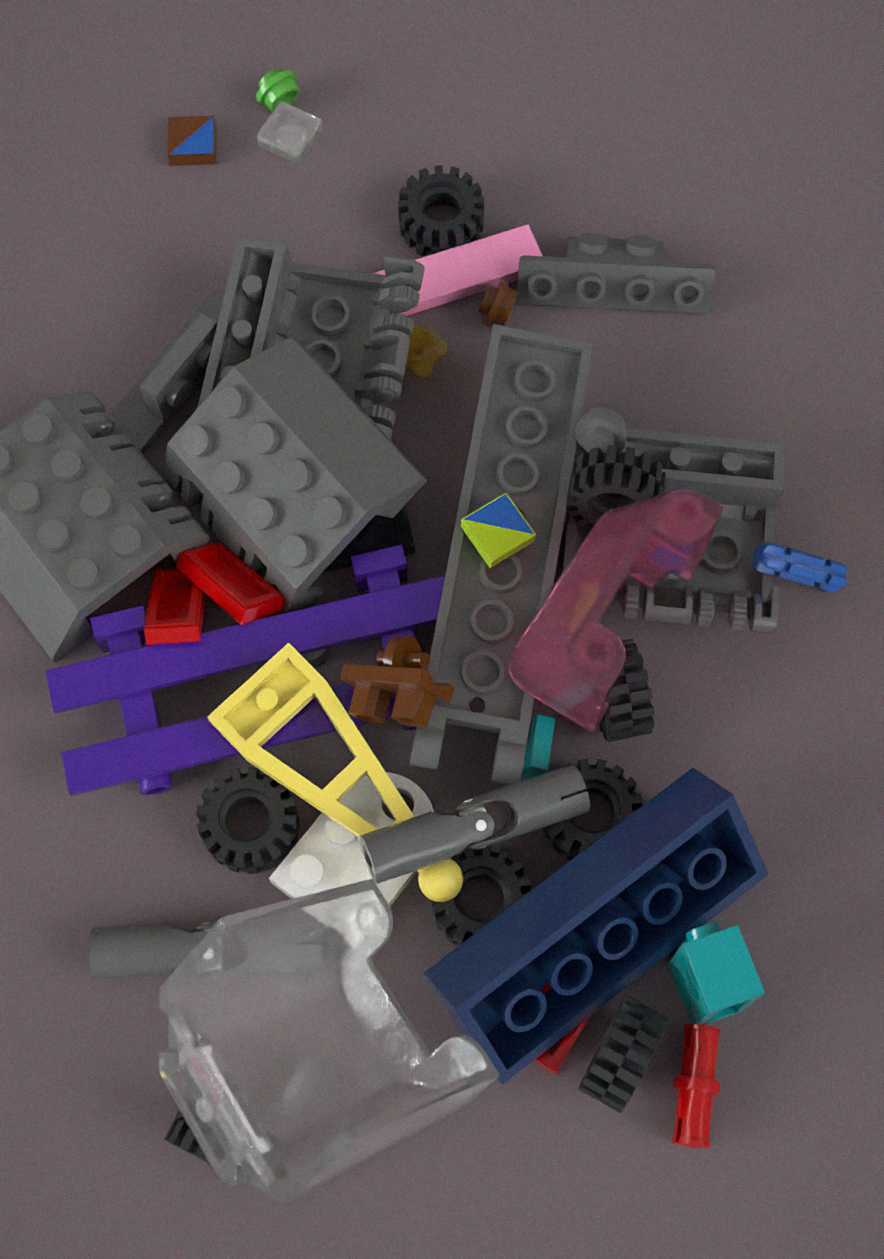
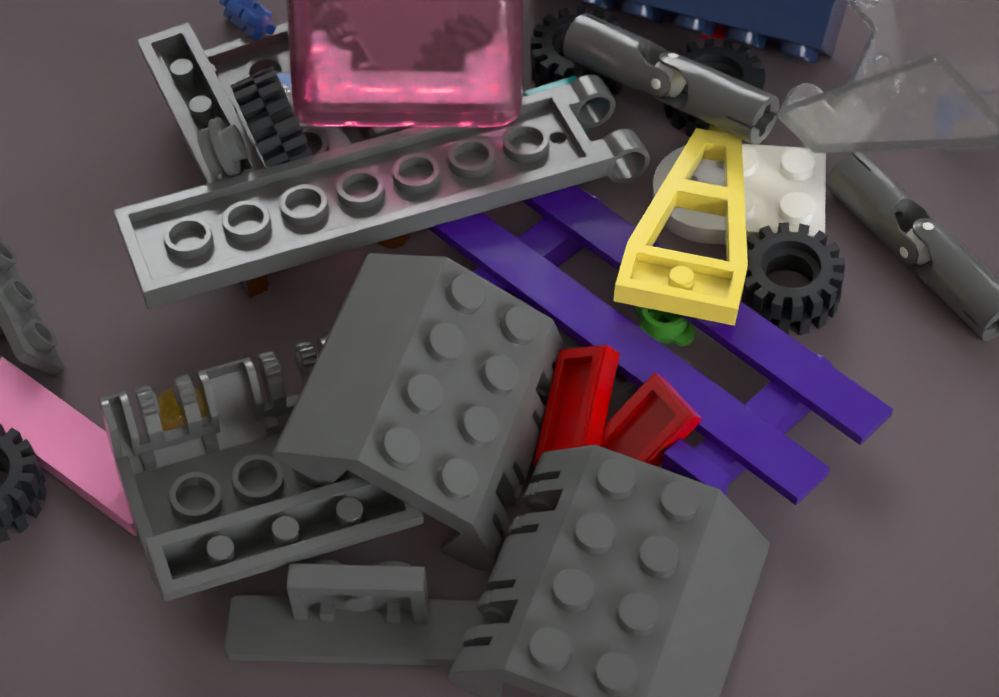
camera: 120 degrees left, 15 degrees down
(399, 678) = (586, 175): reddish brown hips -> none
(497, 304) = (84, 368): reddish brown plate -> none
(498, 530) = (381, 177): lime tile -> none

